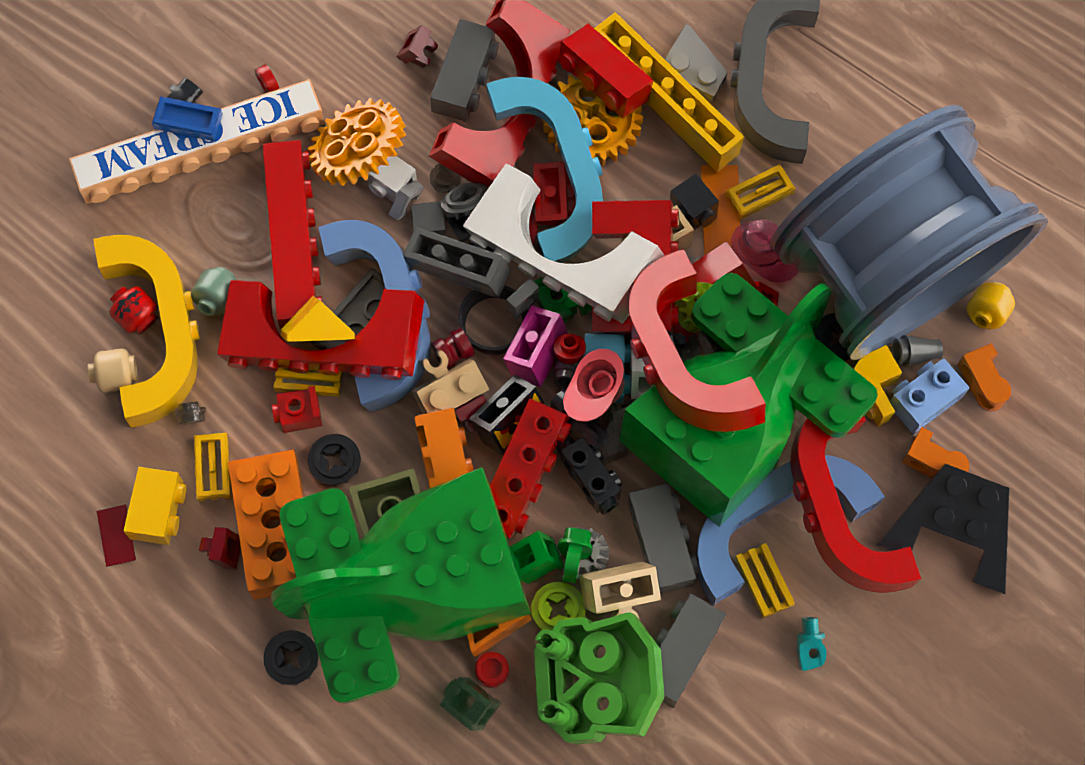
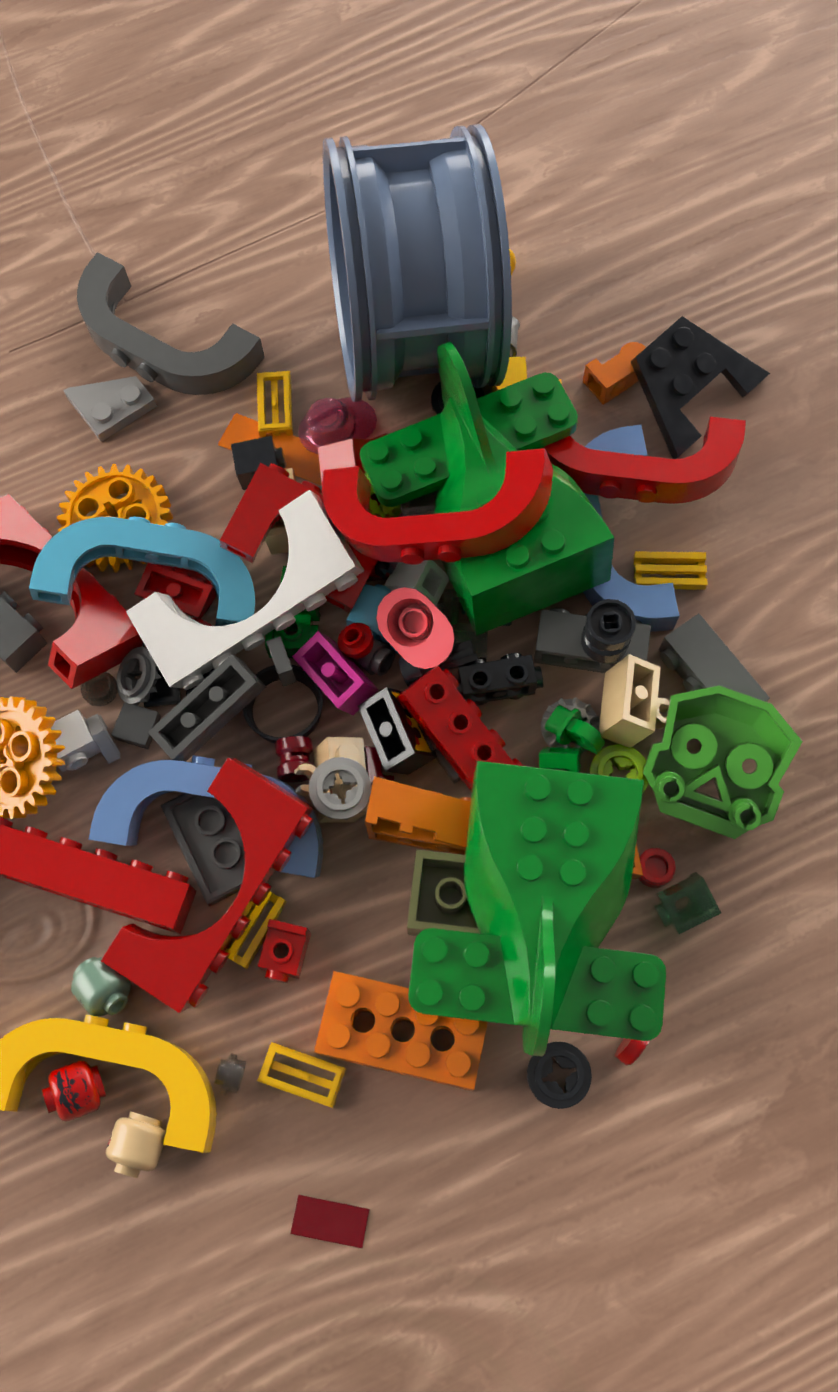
camera: 60 degrees left, 0 degrees up
(155, 506) = (321, 1159): yellow brick -> none
(222, 548) = (404, 1100): dark red tile -> none
(316, 323) = (205, 884): yellow slope -> none
(330, 446) = (360, 917): black gear -> none
(330, 704) = (630, 1050): none -> red tile
(437, 372) = (351, 774): none -> light grey gear
(605, 70) = (74, 476): red brick -> none
(665, 539) = (608, 631): none -> black wheel
(676, 99) = (125, 435): yellow brick -> none
(810, 639) = (747, 554): teal piece -> none
(927, 395) = (553, 346): light blue brick -> none
(983, 378) = (559, 298): orange leg -> none

